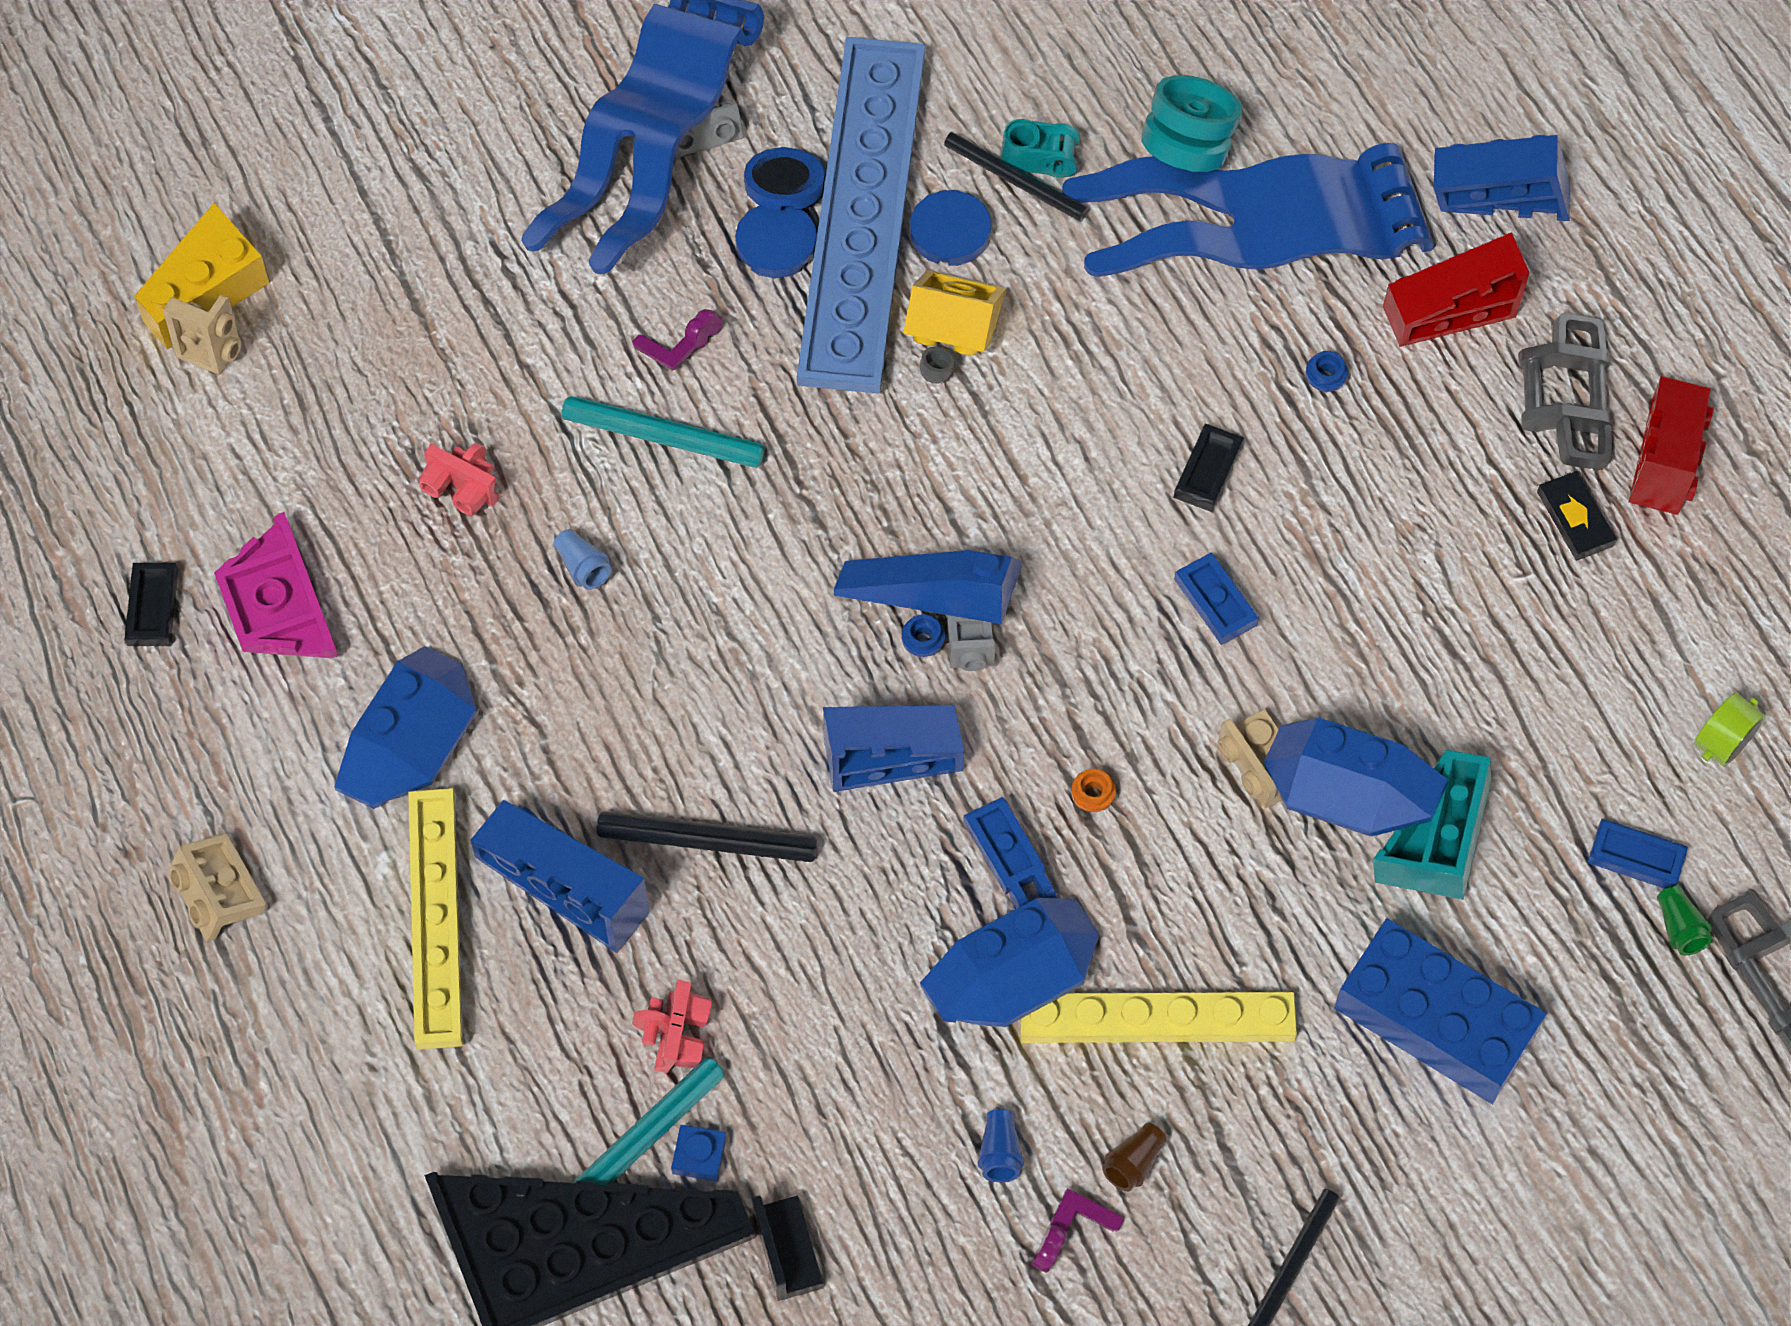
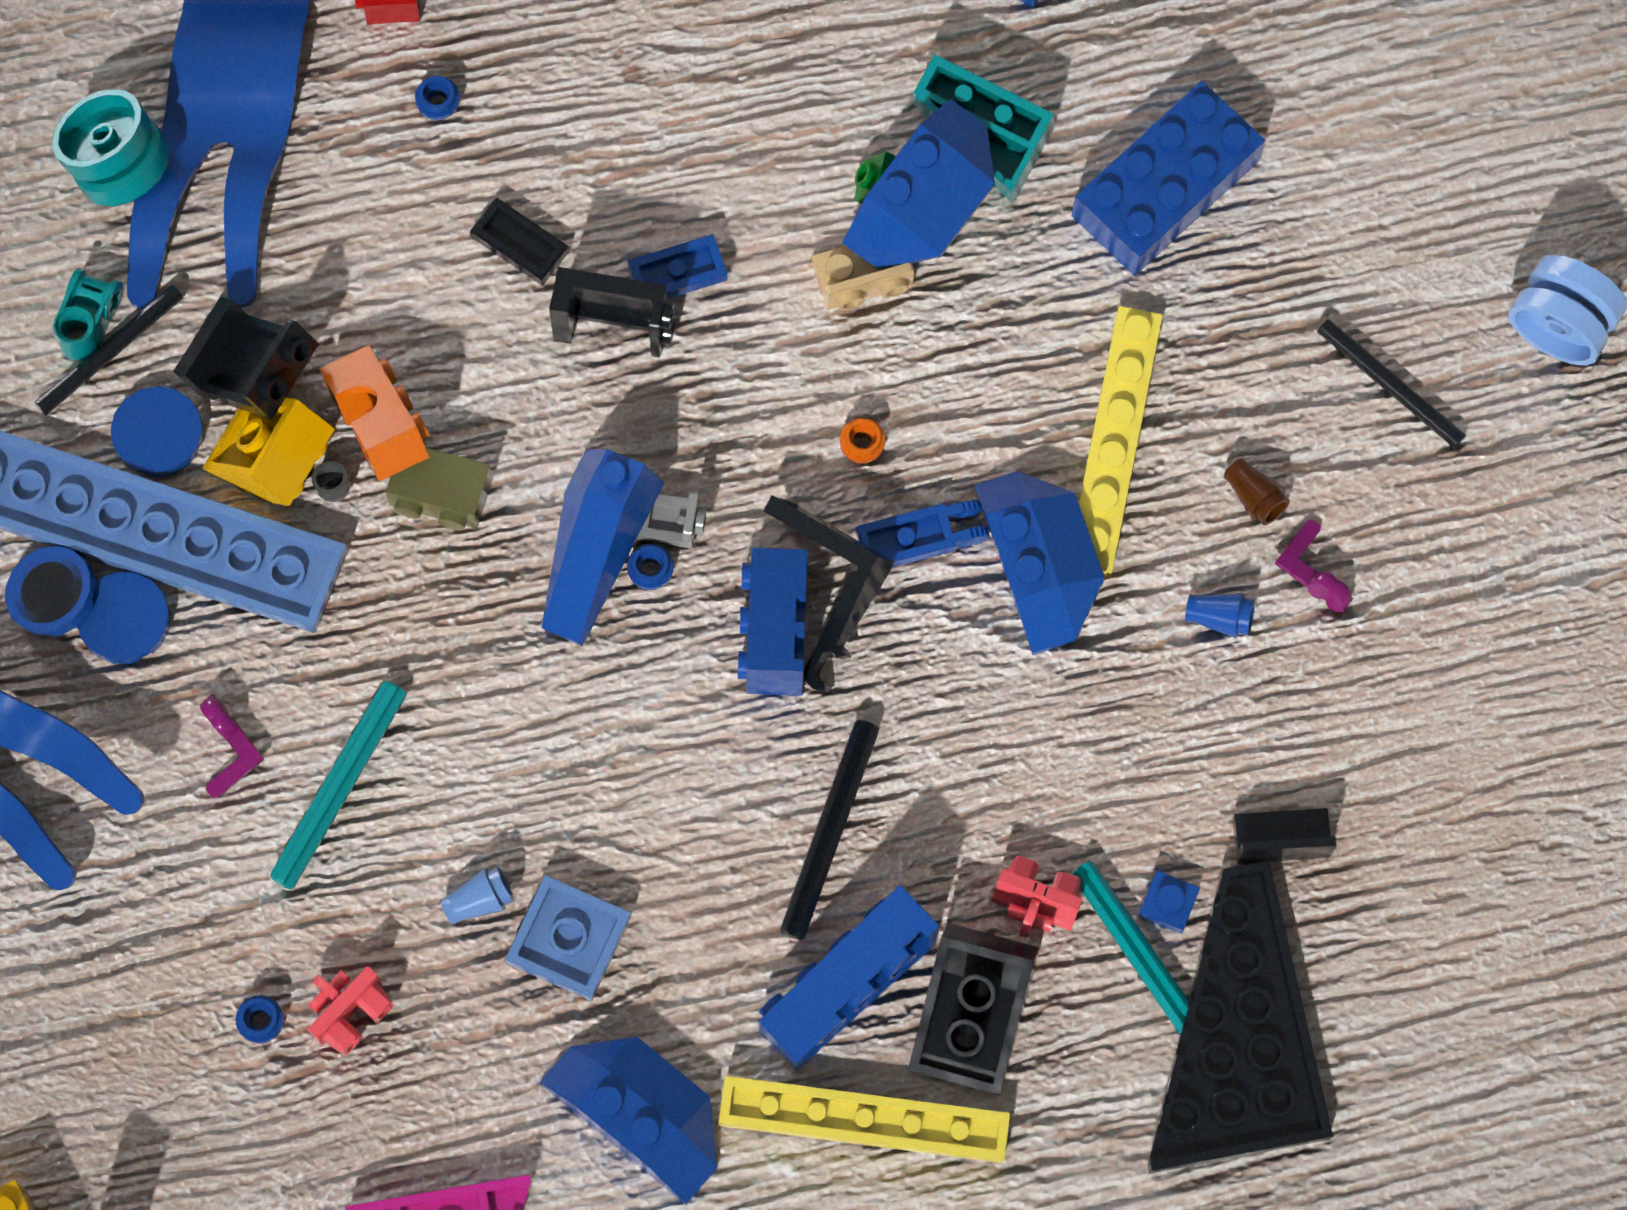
camera: 80 degrees left, 10 degrees up
(438, 407) = (249, 1009): none -> blue plate
(558, 638) = (568, 938): none -> medium blue plate
(560, 990) = (973, 1008): none -> black slope
(951, 809) = (857, 592): none -> black hinge
(953, 447) = (442, 488): none -> olive brick
(1021, 369) = (377, 411): none -> orange arch
(1027, 266) = (245, 359): none -> black panel
(1152, 510) = (610, 302): none -> black panel

